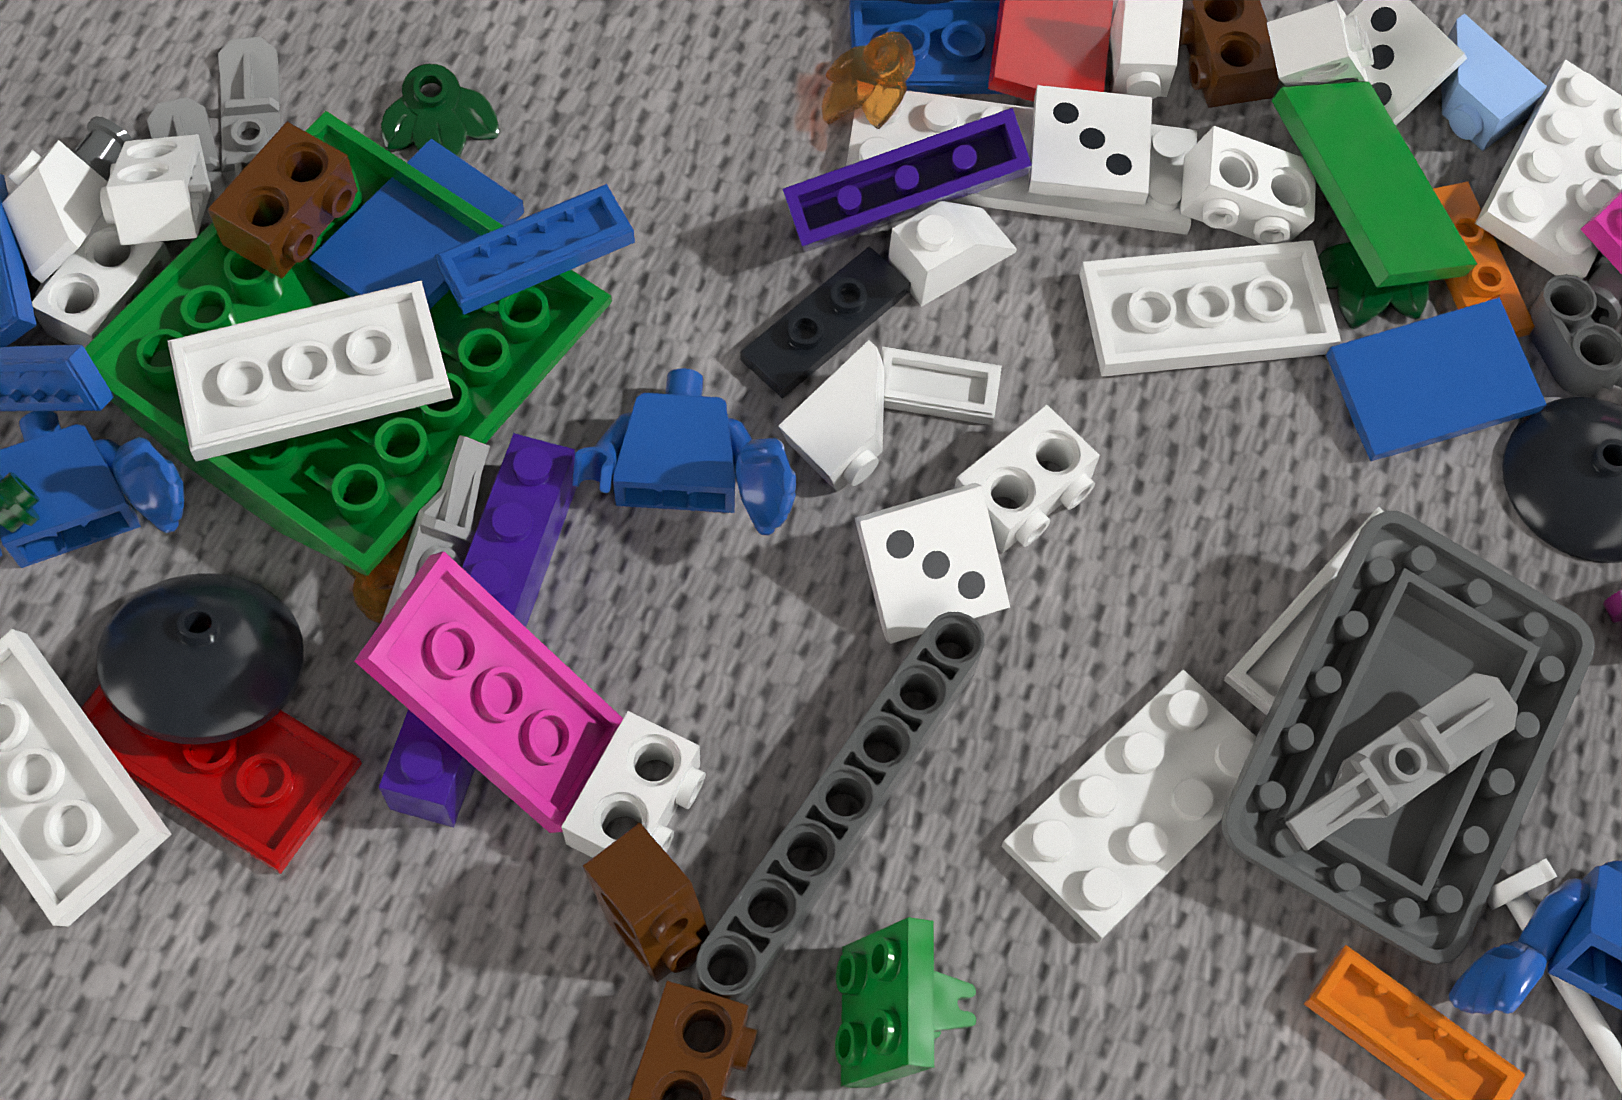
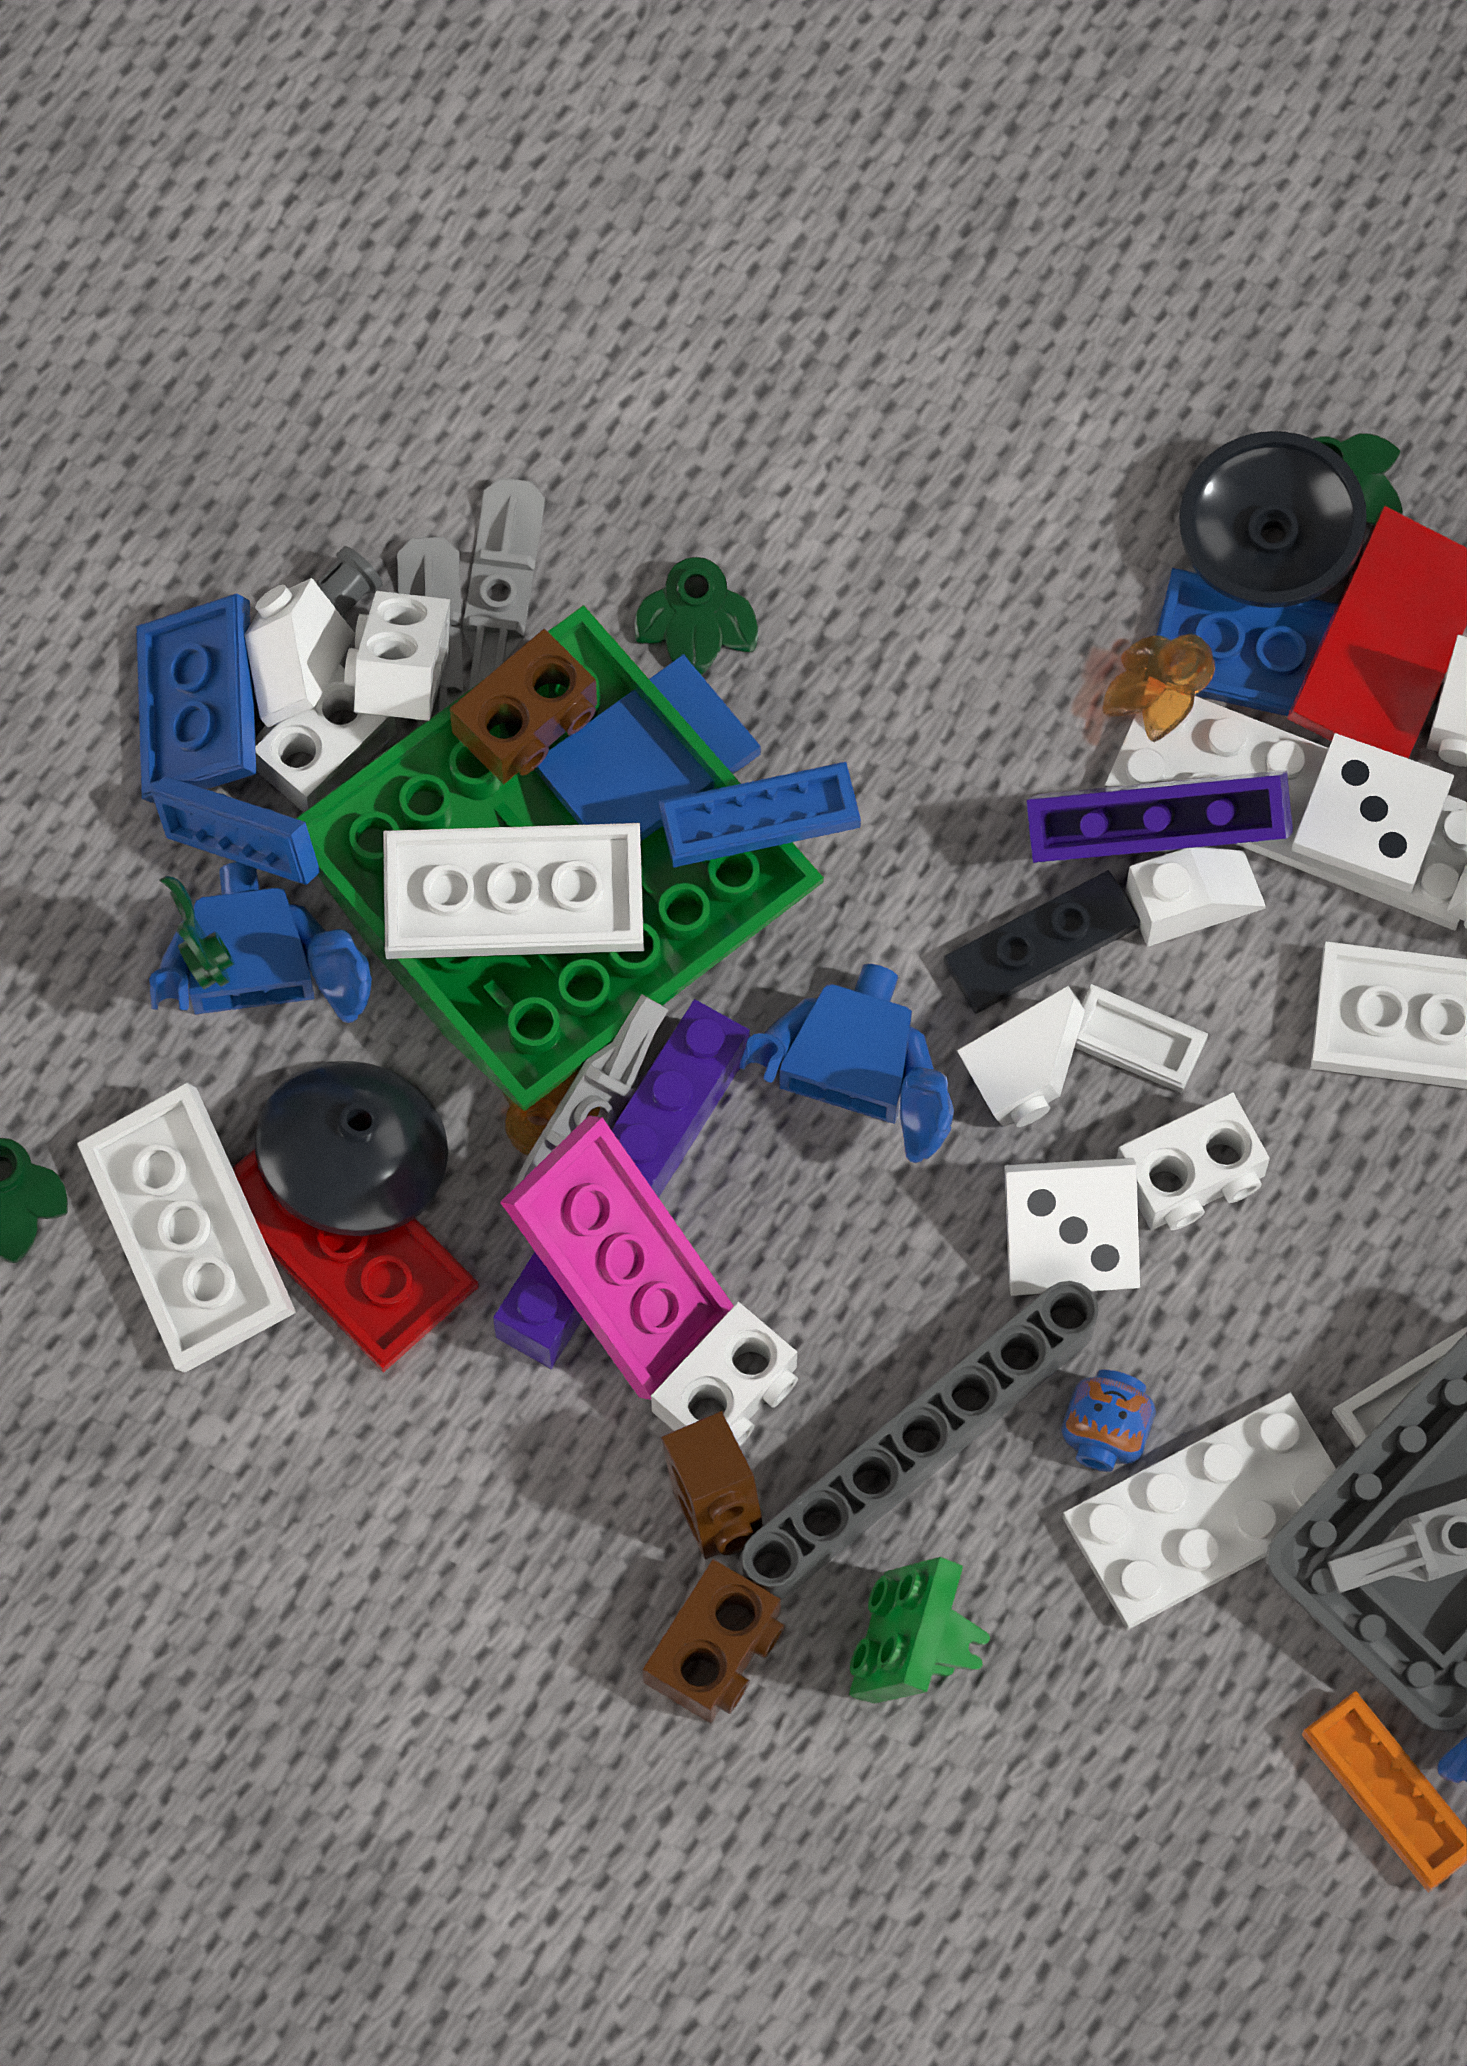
camera: 20 degrees right, 5 degrees up
(1020, 738) = (1108, 1420): none -> blue head

